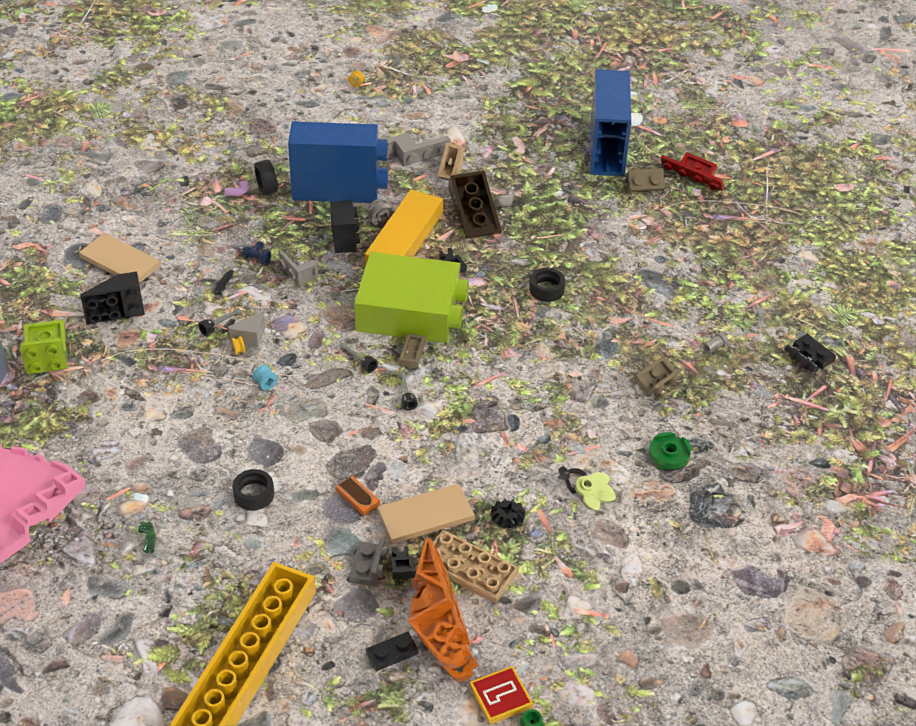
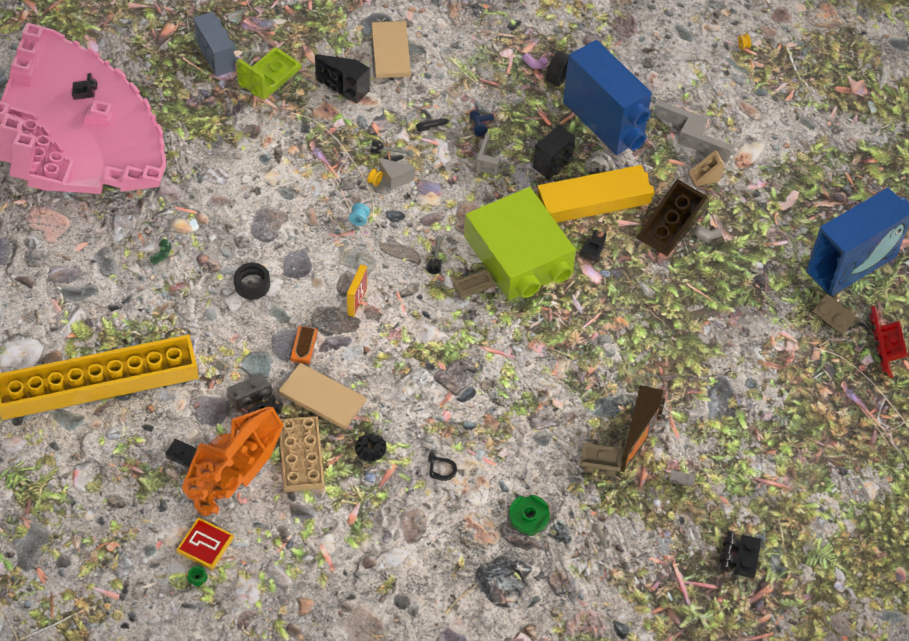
camera: 50 degrees right, 10 degrees up
(347, 421) = (357, 290): none -> yellow tile
(408, 399) = (421, 314): black hinge -> none
(547, 294) = (633, 335): black tyre -> none
(597, 489) = (444, 490): yellowish green plate -> none
(649, 331) = (646, 412): none -> dark brown slope

